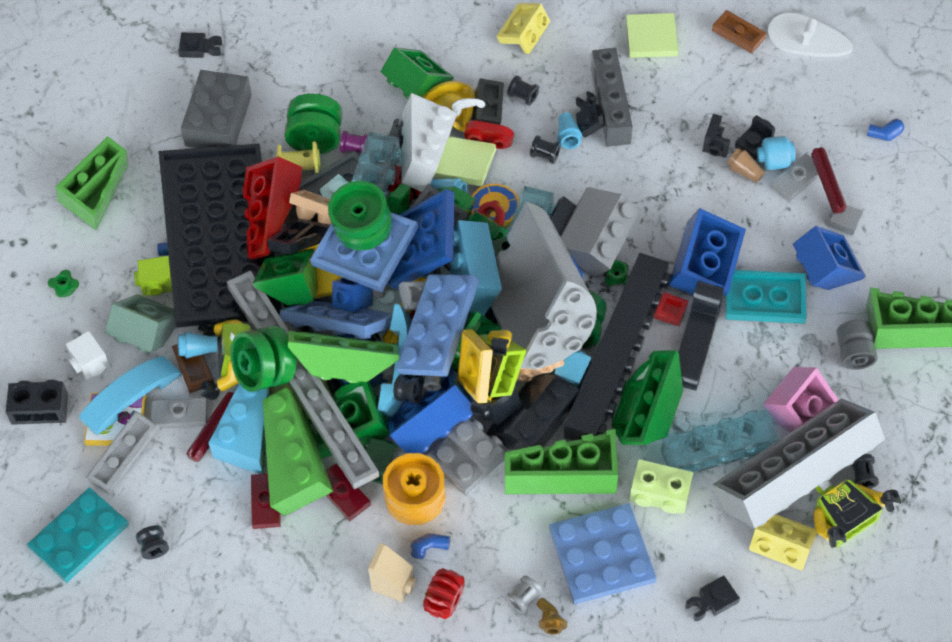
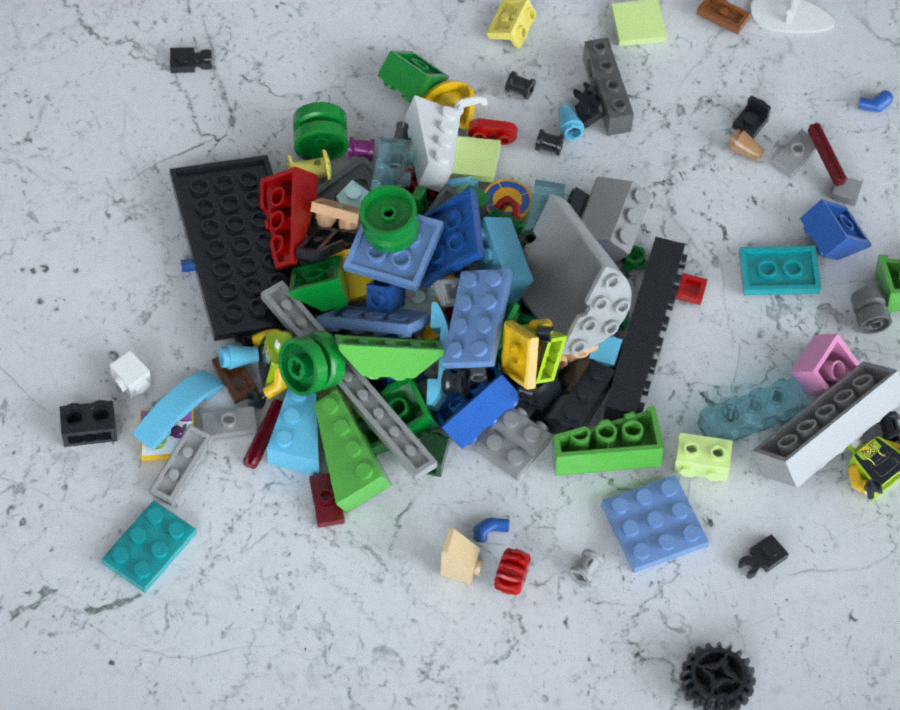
camera: 10 degrees left, 0 degrees up
(65, 289) = (93, 313): green plate -> none
(93, 182) = (108, 204): bright green wedge -> none
(141, 323) = (178, 339): sand green slope -> none
(152, 542) = (224, 547): black wheel -> none
(153, 276) = (184, 292): lime brick -> none
(216, 110) = (219, 124): dark grey brick -> none
(346, 498) = (404, 488): dark red plate -> none
(414, 489) = (469, 477): light orange wheel -> none
(492, 95) = (491, 90): pearl dark grey hinge -> none
(551, 621) = (616, 589): pearl gold plate -> none
(650, 400) = (682, 376): green wedge -> none
(699, 332) = (720, 312): black beam -> none
(707, 253) = (720, 235): blue slope -> none
(714, 141) = (713, 125): black bracket -> none
(776, 153) = (774, 131): medium azure head -> none
(783, 541) = (823, 498): light yellow bracket -> none

